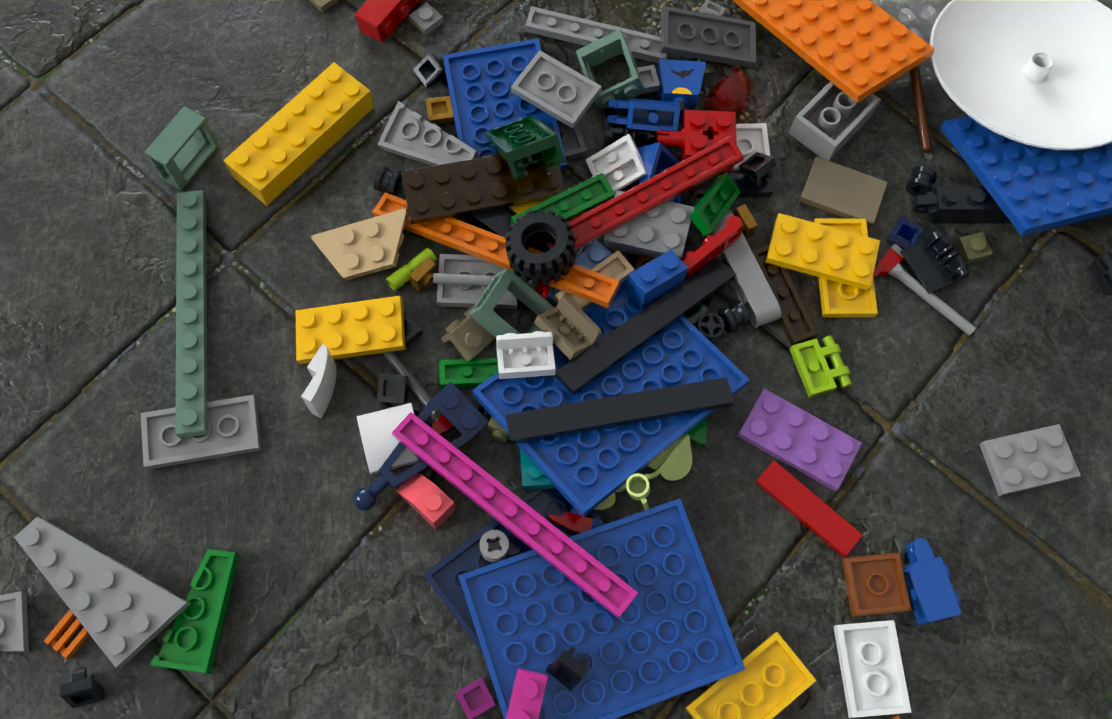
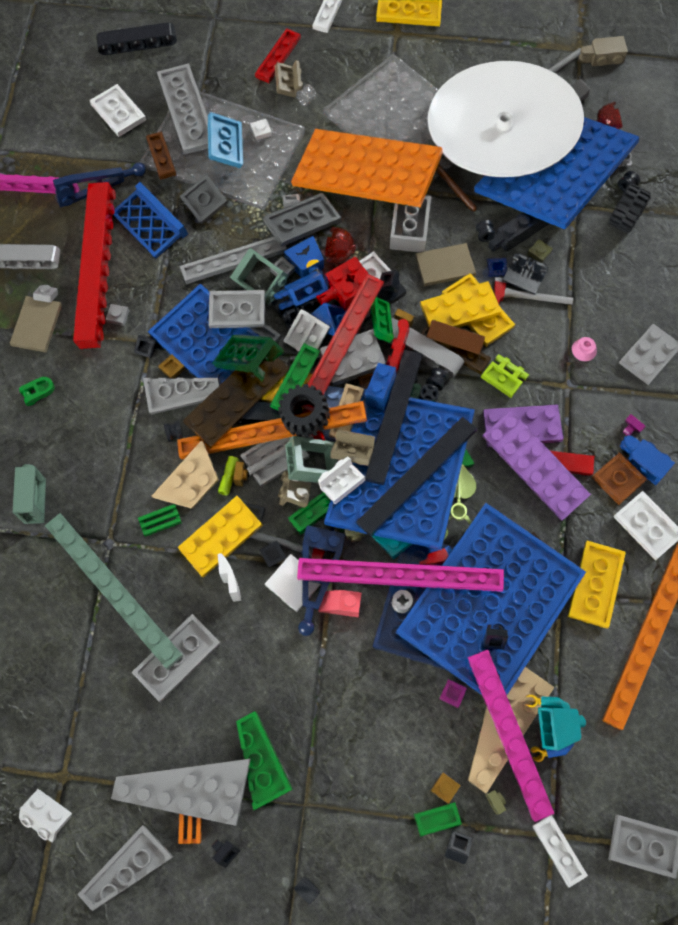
camera: 30 degrees left, 0 degrees up
(288, 45) = (42, 386): none -> green plate
(298, 258) = (142, 519): none -> green tile
(299, 133) = (95, 438): yellow brick -> none
(779, 498) = (536, 465): none -> medium lavender plate
(790, 280) = (455, 336): none -> reddish brown tile
(941, 531) = (633, 425): none -> magenta tile
(945, 399) = (584, 349): none -> bright pink cone

